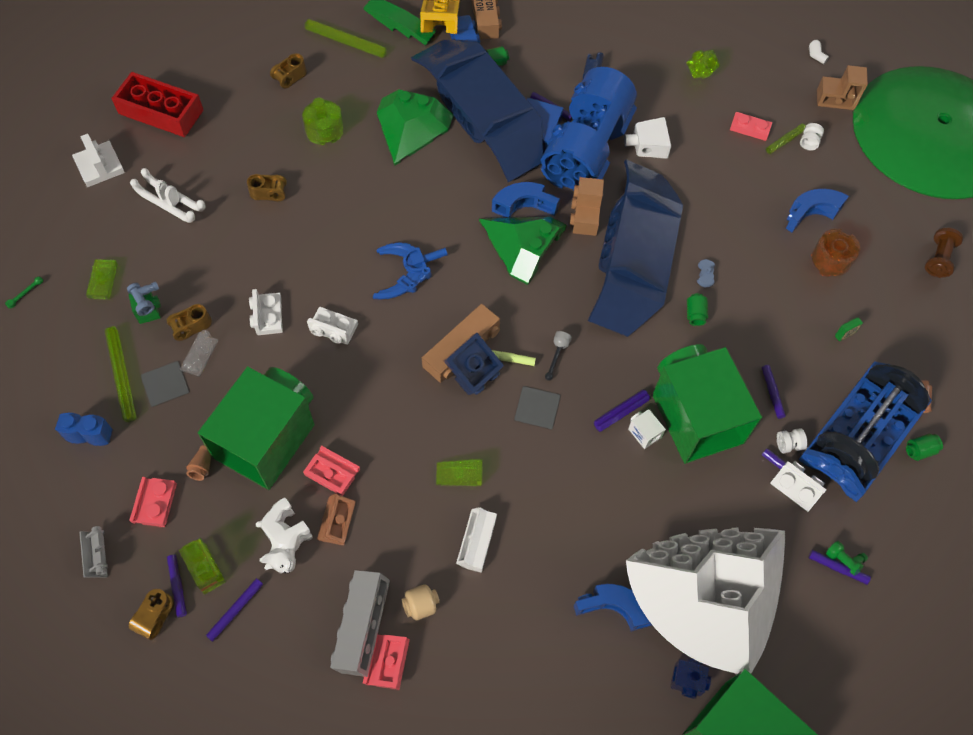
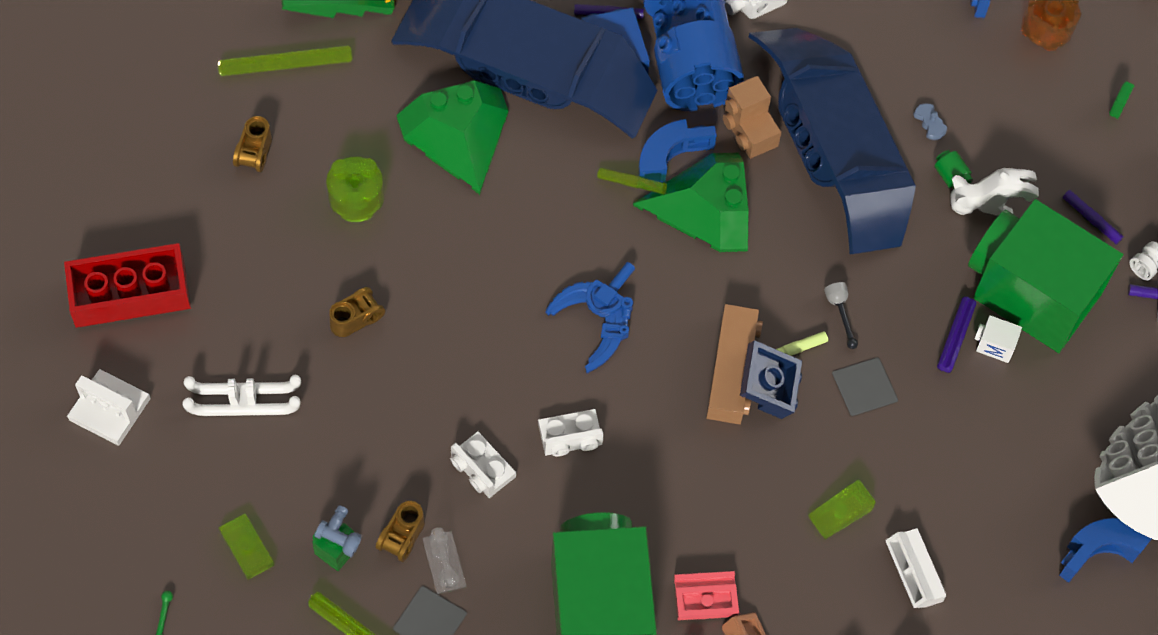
camera: 35 degrees left, 0 degrees up
(486, 204) = (632, 180): none -> clear neon green piece
(711, 334) = (993, 191): none -> white animal

